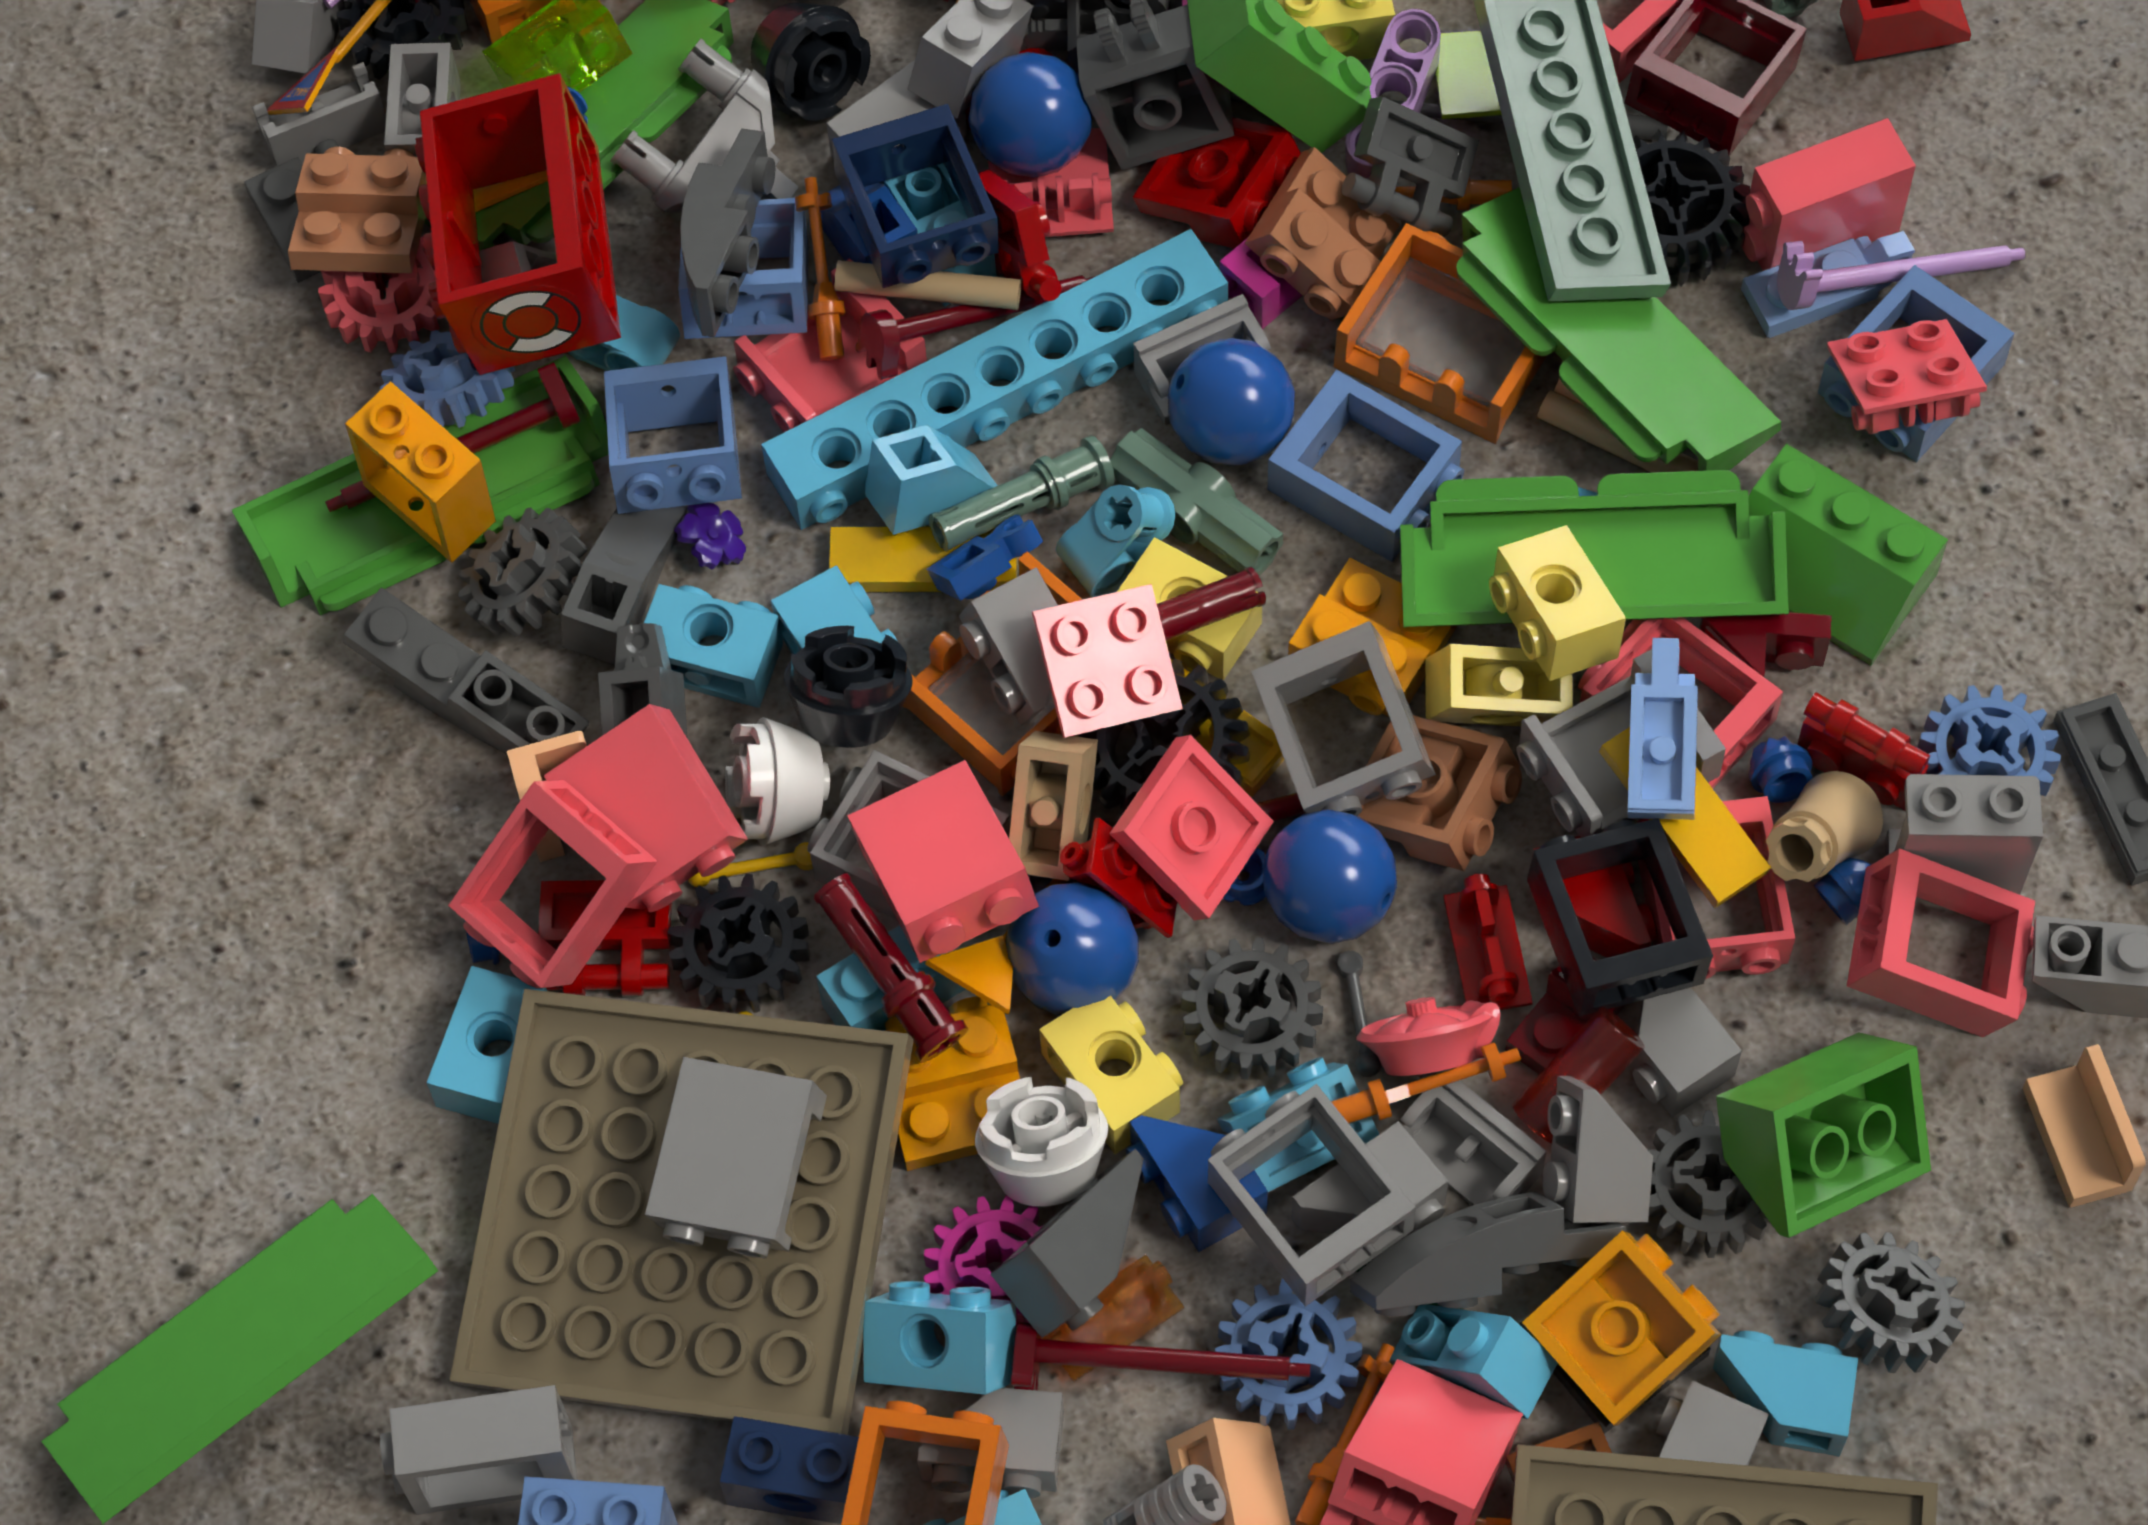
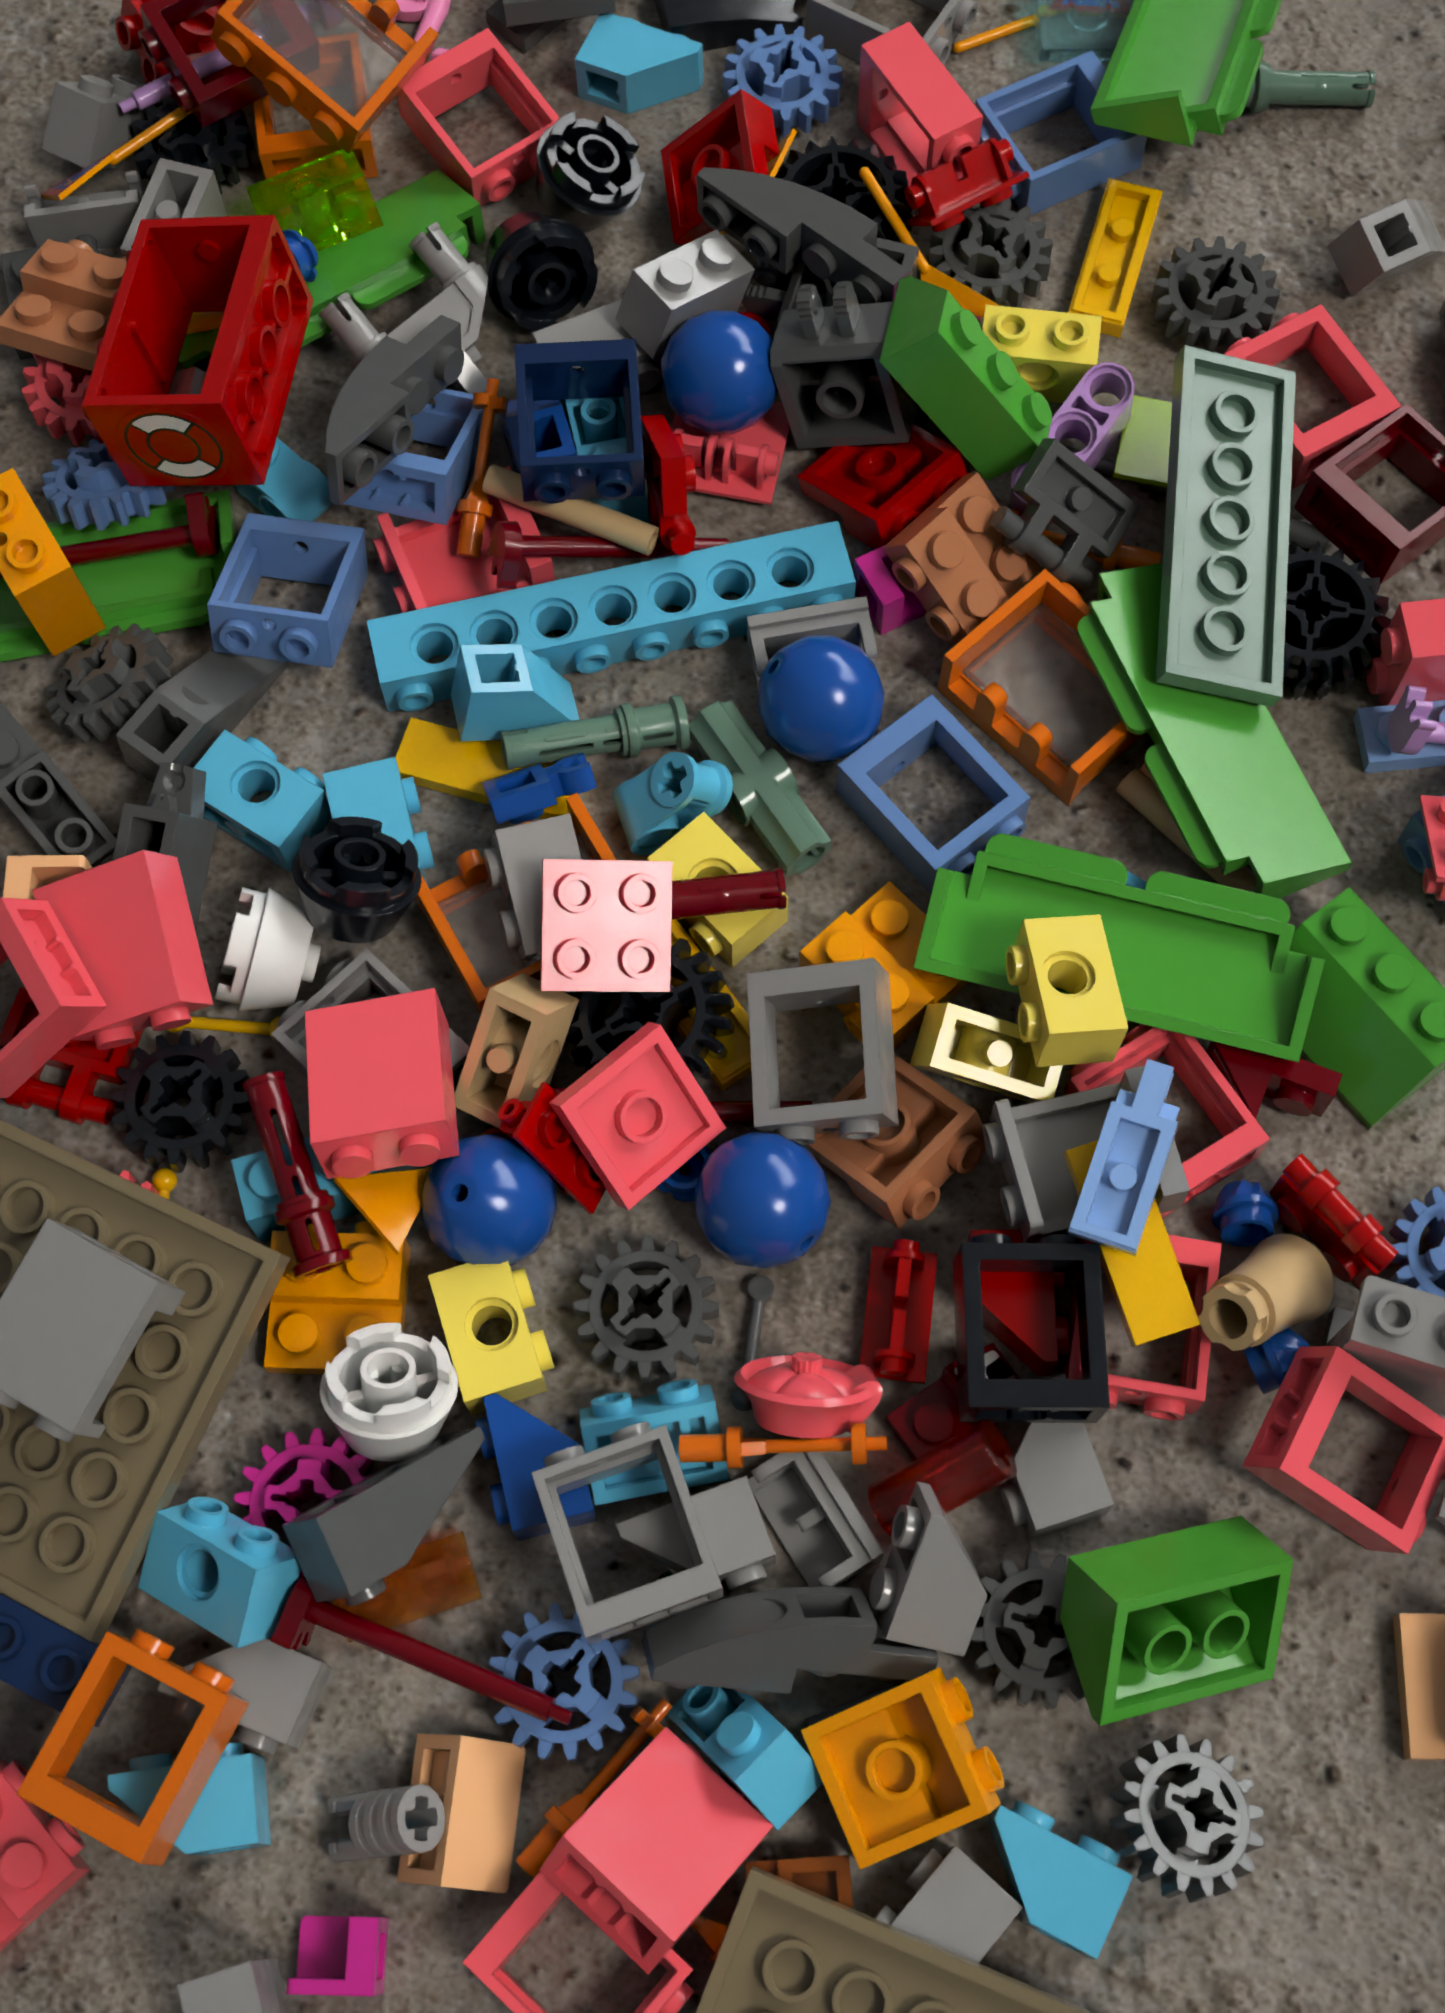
camera: 15 degrees right, 5 degrees up
(714, 533) = (299, 695): dark purple plant -> none

